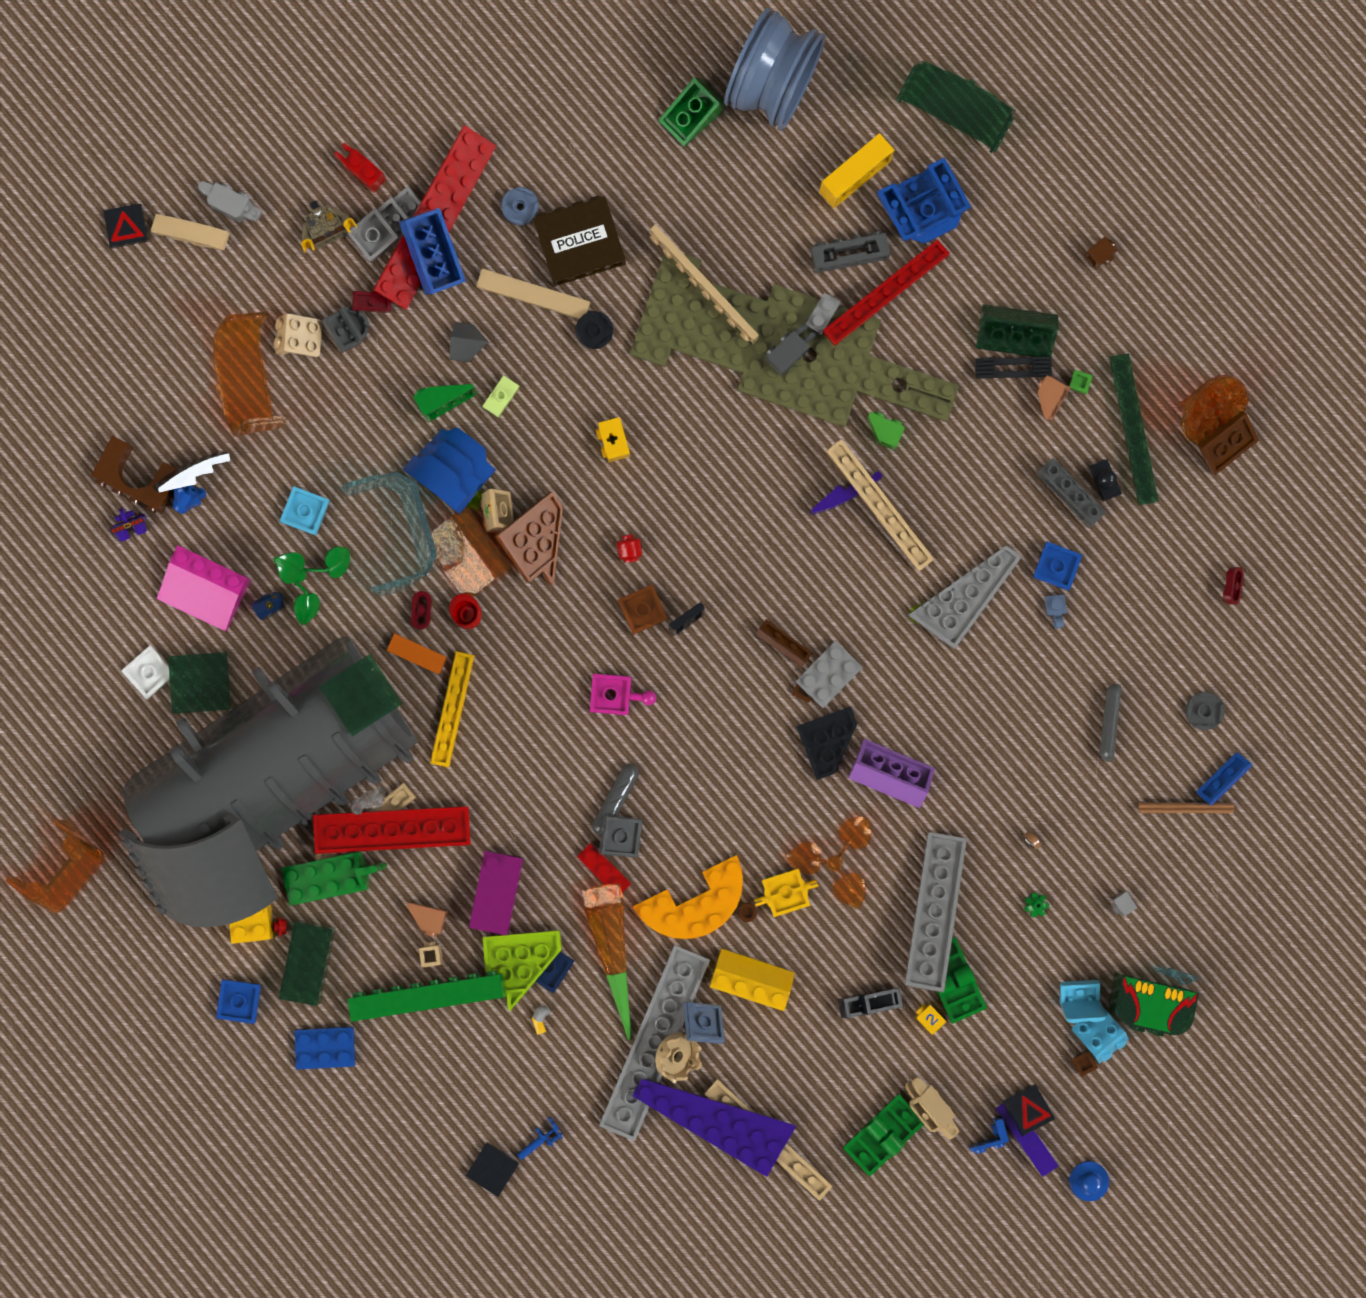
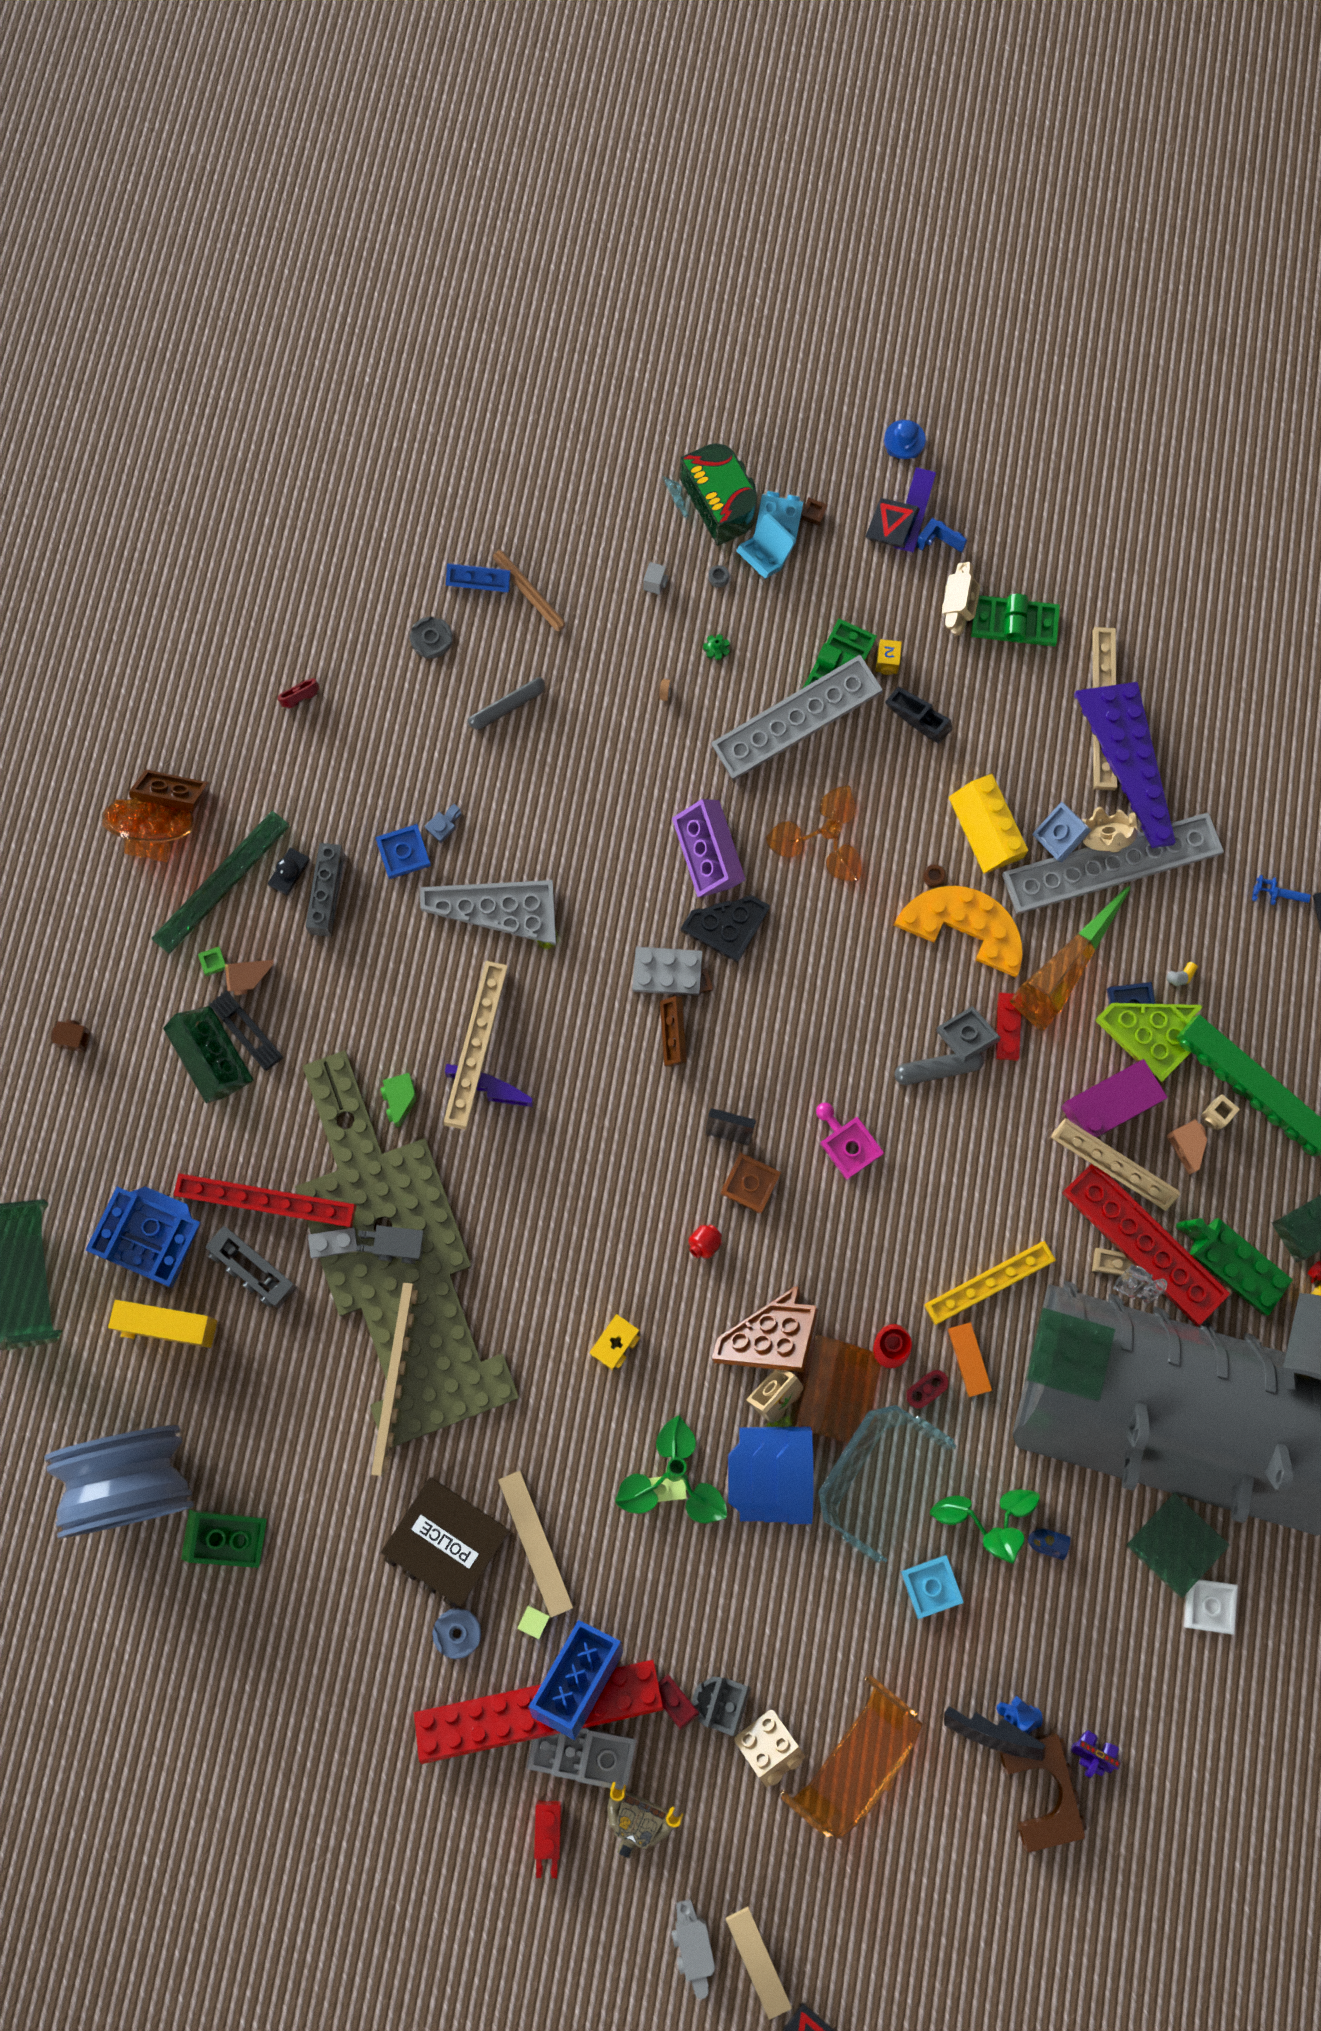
camera: 130 degrees left, 10 degrees down
(202, 588) = (1088, 1623): slope -> none
(441, 399) = (719, 1545): green slope -> none
(456, 854) = (1115, 1164): none -> tan tile
(465, 342) = (636, 1569): dark grey slope -> none
(488, 256) = (533, 1622): none -> yellowish green tile
(521, 428) = (678, 1442): none -> green plant
(594, 330) = (523, 1452): black tile -> none
(786, 892) = (889, 855): yellow plate -> none
(1089, 952) = (718, 576): none -> dark grey tile

